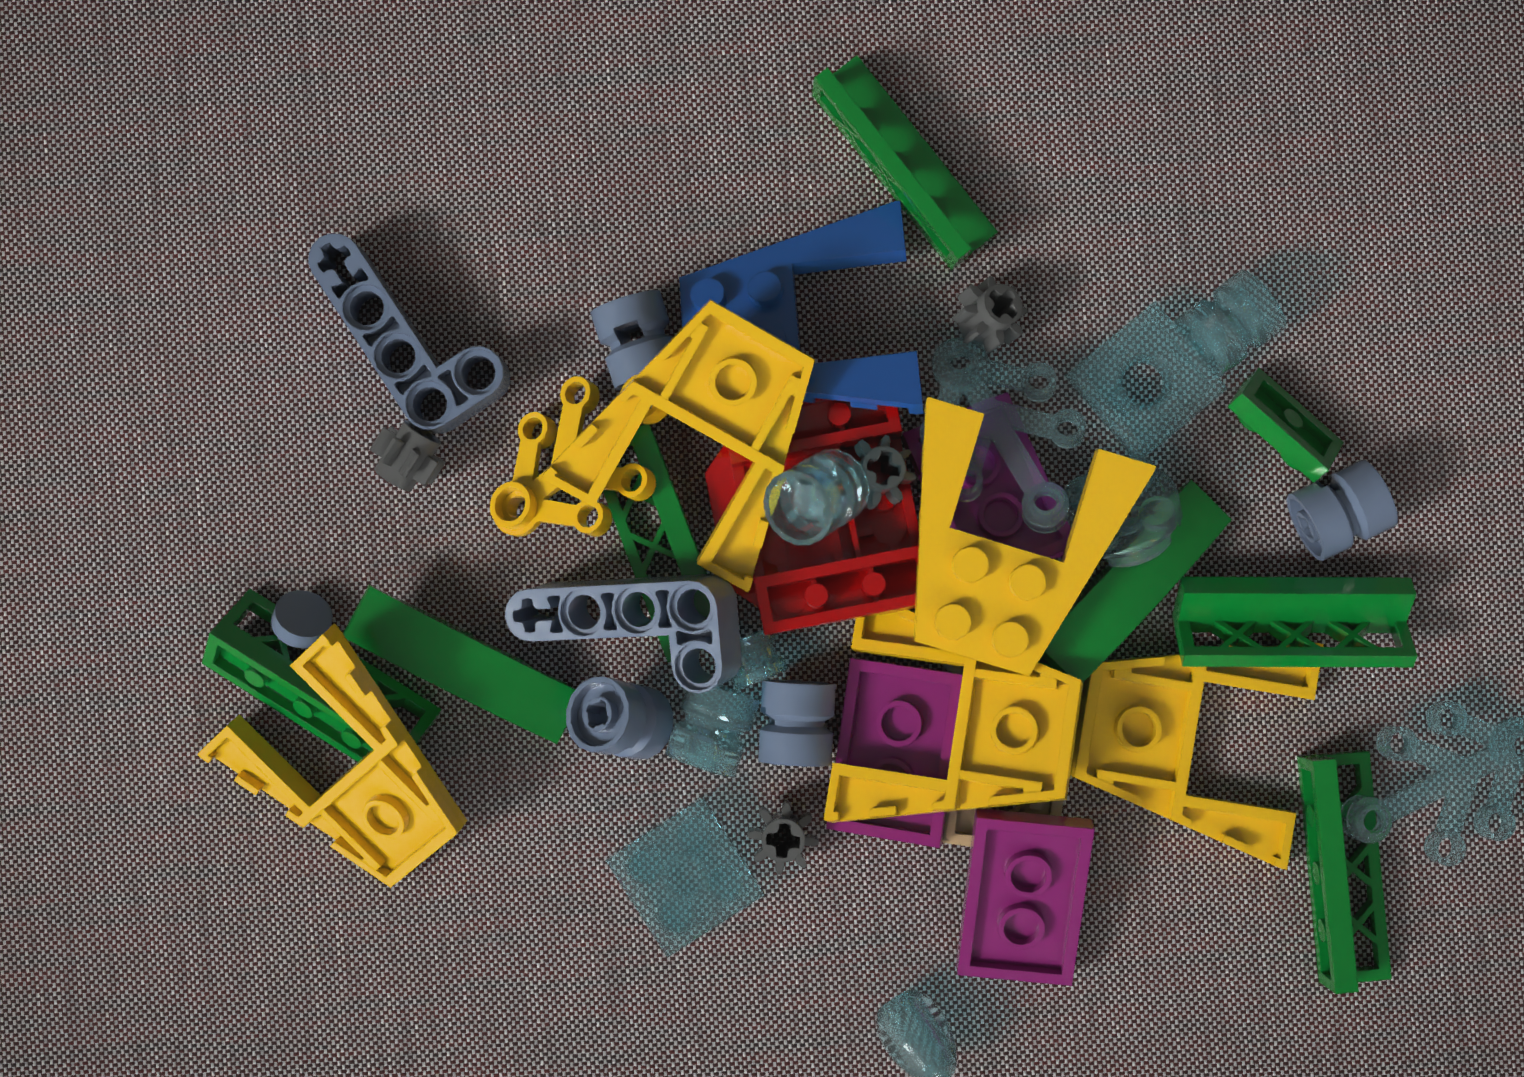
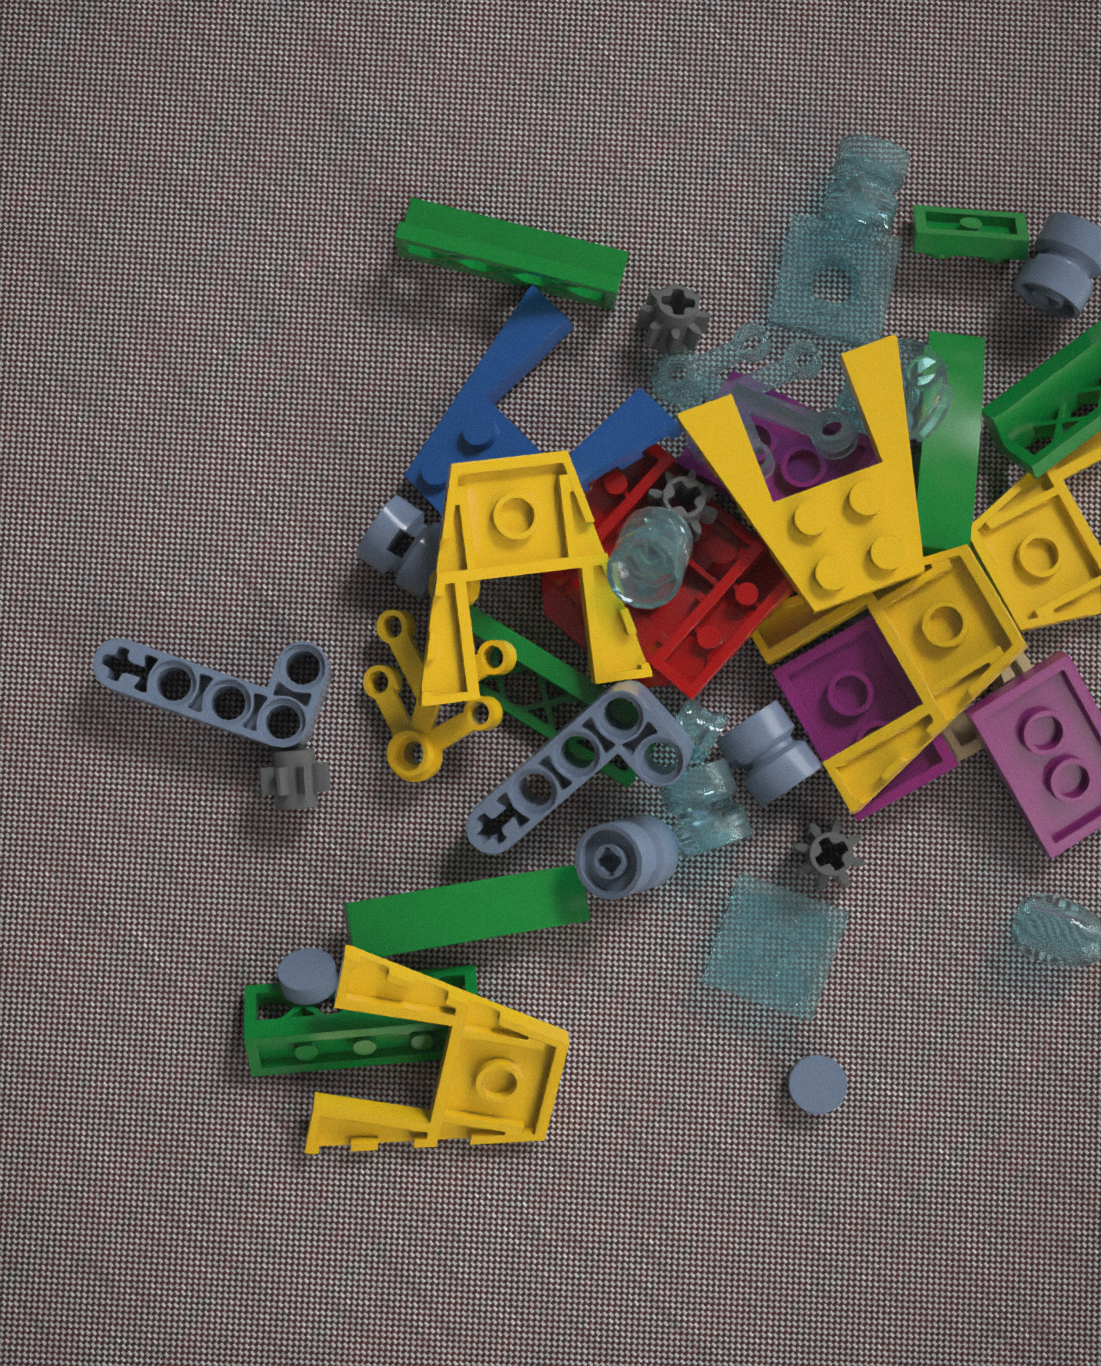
camera: 40 degrees left, 5 degrees down
(637, 1006) = (817, 1084): none -> sand blue tile

